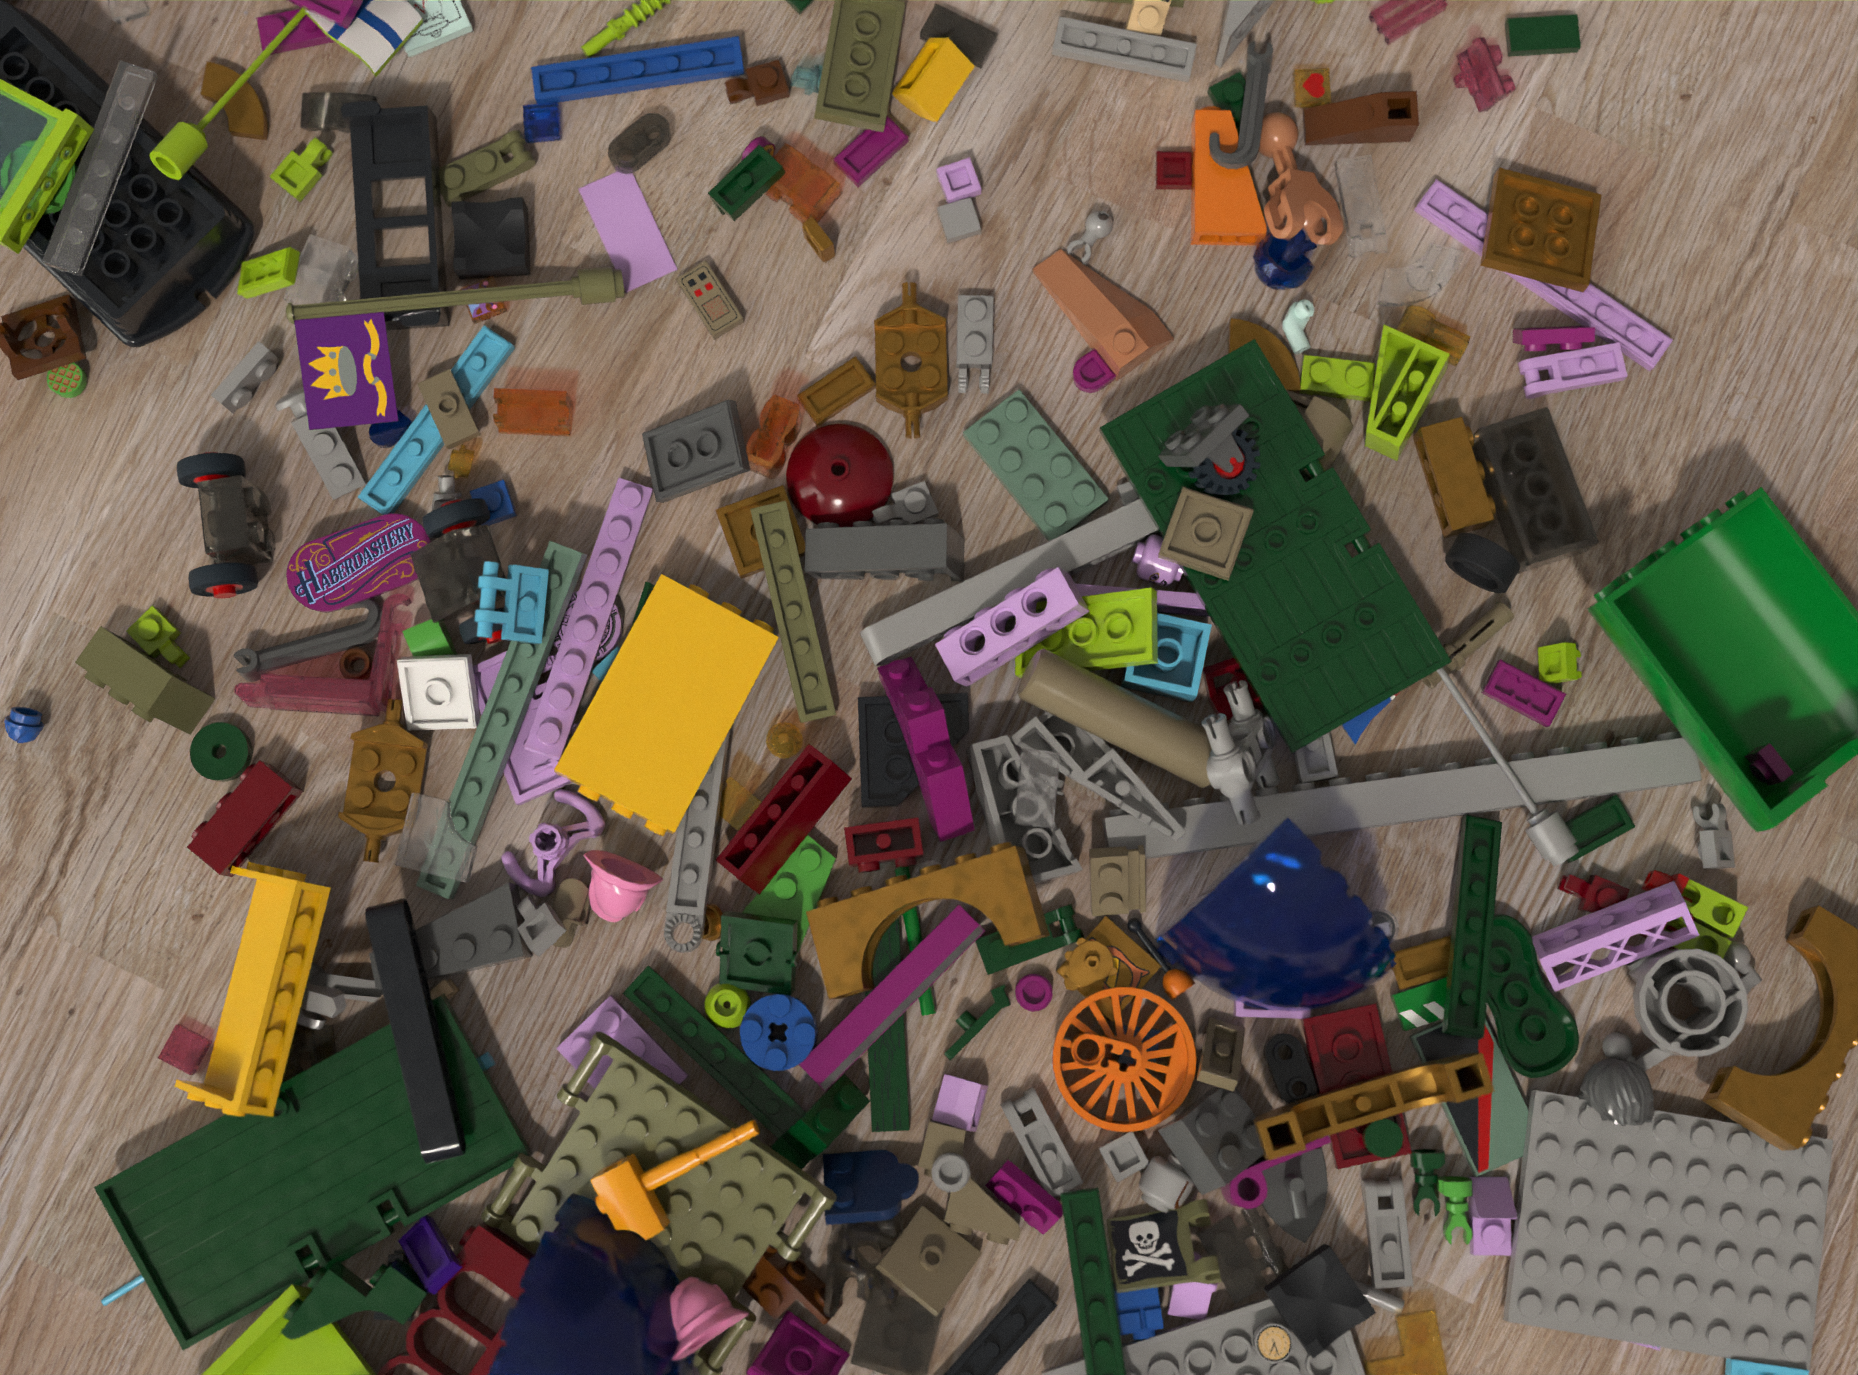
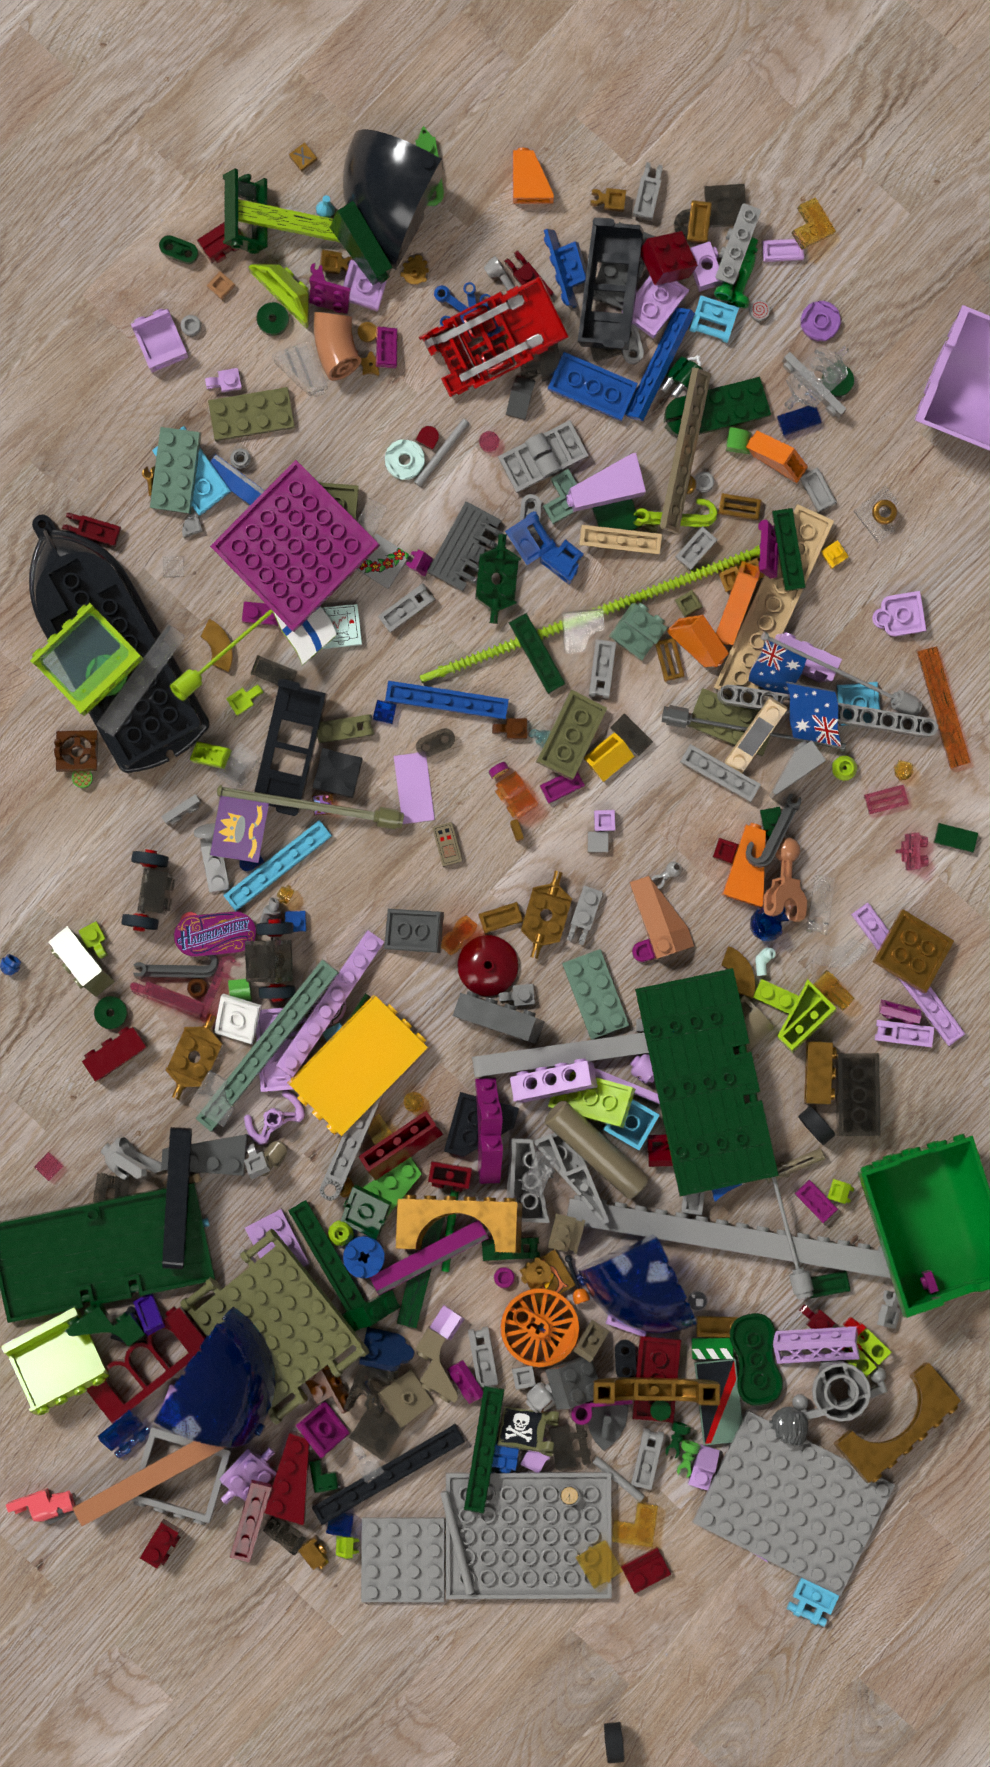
camera: 10 degrees right, 5 degrees up
(263, 993) = (102, 1152): yellow panel -> none
(449, 409) = (287, 863): dark tan plate -> none
(523, 603) = (298, 991): medium azure plate -> none
(533, 412) = (332, 879): clear orange hinge -> none
(617, 885) = (303, 1152): bright pink piece -> none
(628, 1191) = (263, 1315): light orange piece -> none
(700, 1314) = (281, 1388): bright pink piece -> none
(740, 530) = (436, 984): pearl gold plate -> none
(746, 183) = (487, 789): dark green panel -> none
(793, 611) = (439, 1035): olive plate -> none
(950, 1172) = (431, 1357): light grey tile -> none
(973, 1026) = (466, 1285): dark green piece -> none
(1205, 533) = (671, 1066): dark tan tile -> none
(1215, 450) = (689, 1024): dark grey plate -> none
(1241, 752) = (652, 1188): light grey piece -> none
(1311, 87) = (817, 827): clear yellow tile -> none
(1319, 1300) = (599, 1481): black brick -> none
(1364, 119) = (836, 857): reddish brown slope -> none
(1472, 928) = (744, 1316): dark green tile -> none

